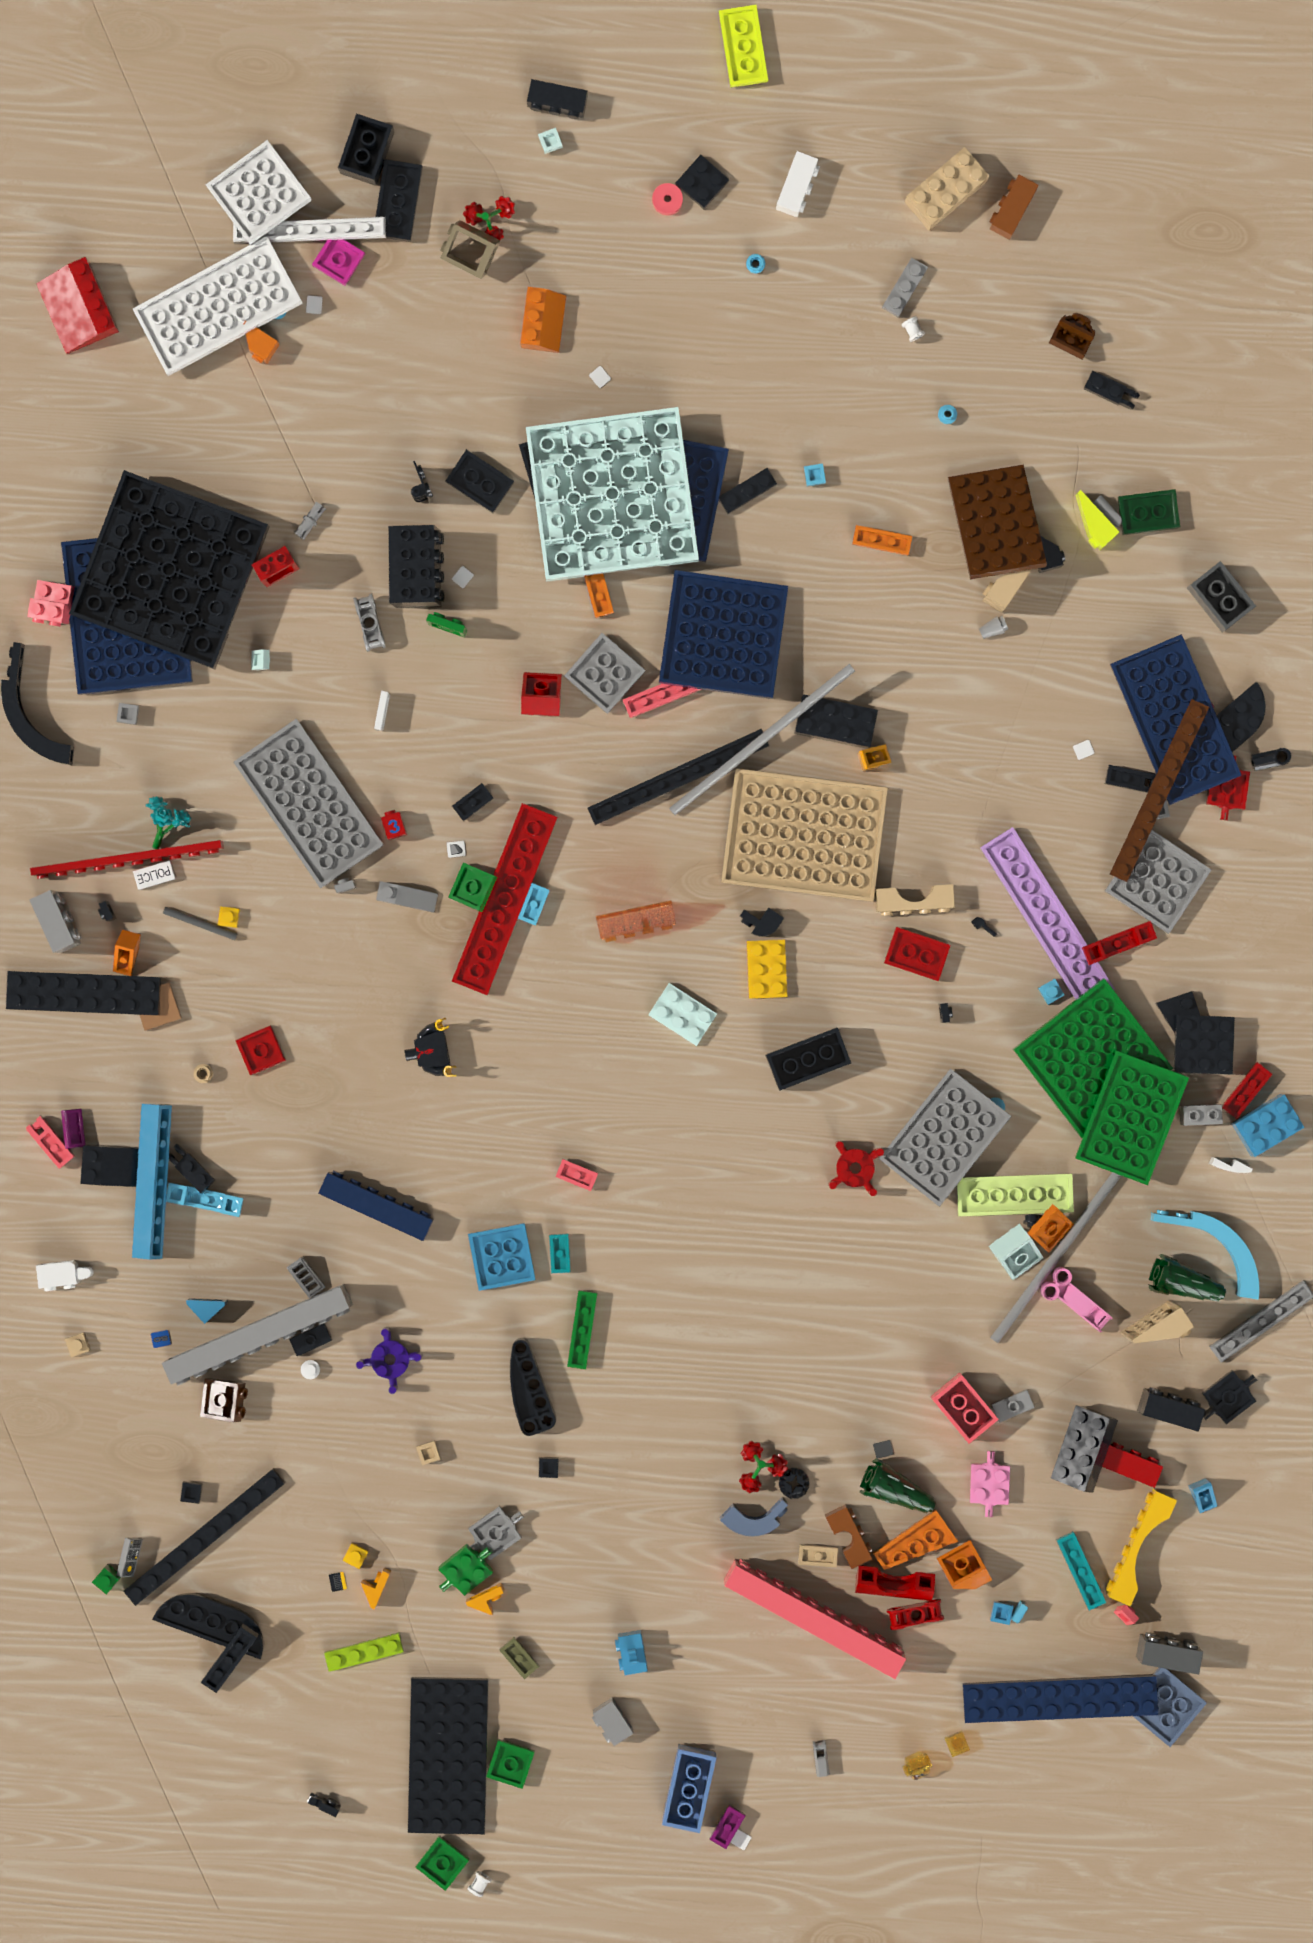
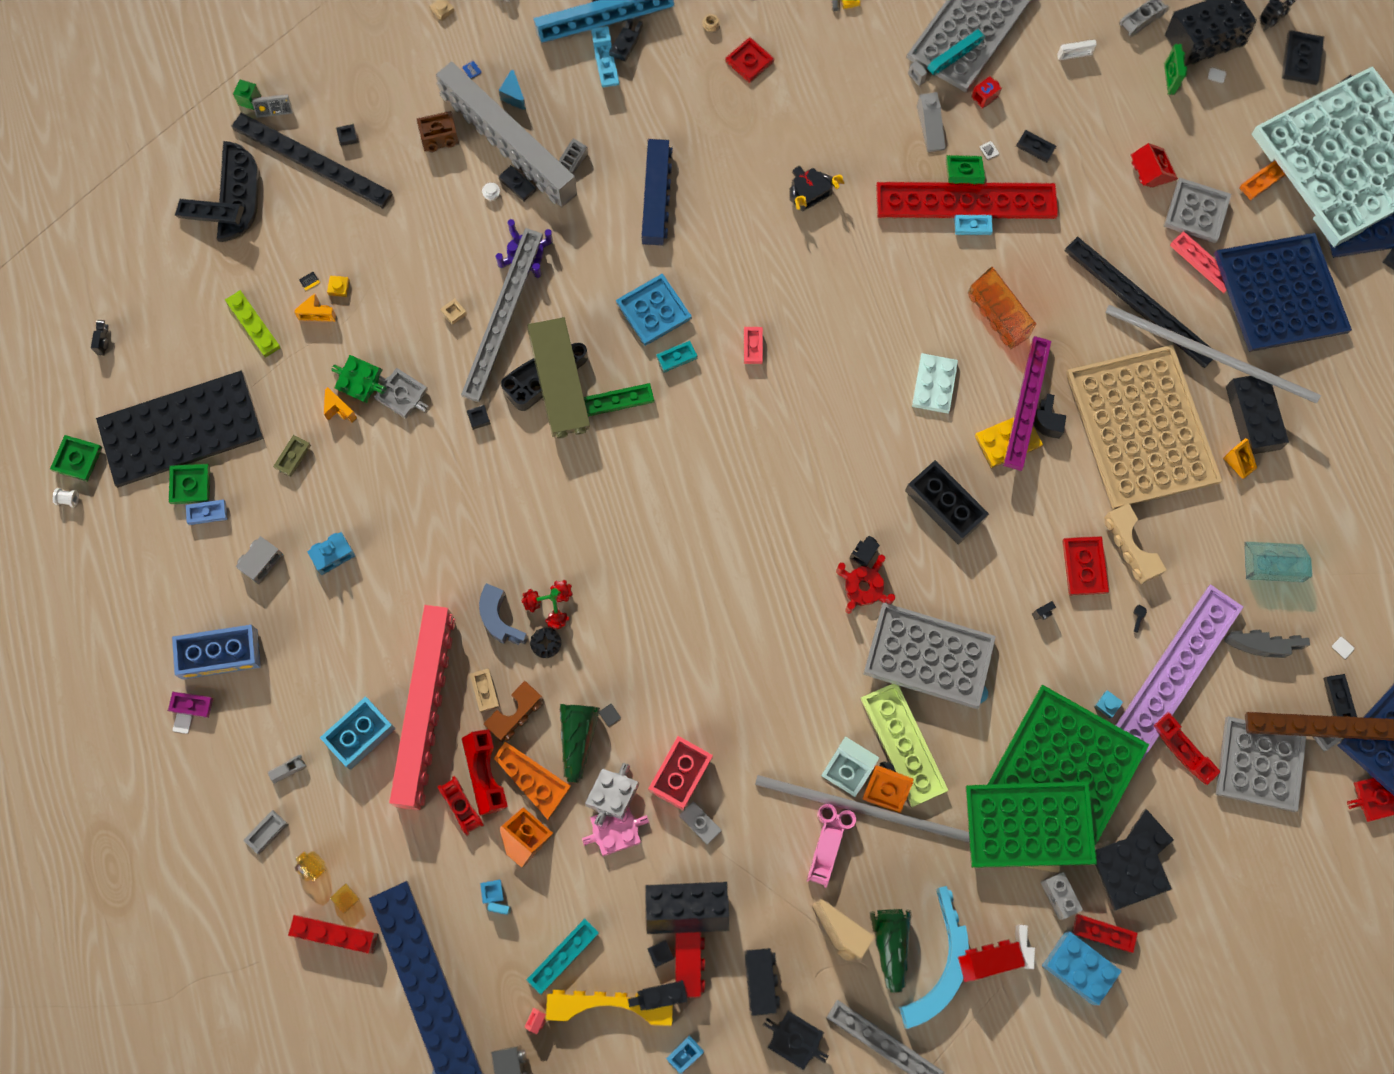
camera: 70 degrees right, 15 degrees down
(341, 840) = (956, 52): none -> teal beam
(452, 1407) = (502, 315): none -> light grey plate
(545, 1379) = (558, 377): none -> olive brick
(545, 1756) = (206, 512): none -> medium blue plate
(740, 938) = (1027, 403): none -> magenta plate
(815, 1684) = (357, 733): none -> medium azure brick
(823, 1153) = (865, 551): none -> black brick
(870, 1794) = (265, 832): none -> light grey tile
(958, 1475) = (612, 794): none -> light grey plate
(979, 1775) = (333, 934): none -> red arch
(981, 772) = (1277, 562): none -> clear light blue slope
(1051, 828) = (1262, 645): none -> dark grey slope
(1112, 1485) = (660, 953): none -> black plate
(1149, 1502) = (659, 996): none -> black hinge
(1231, 1203) = (991, 960): none -> red brick

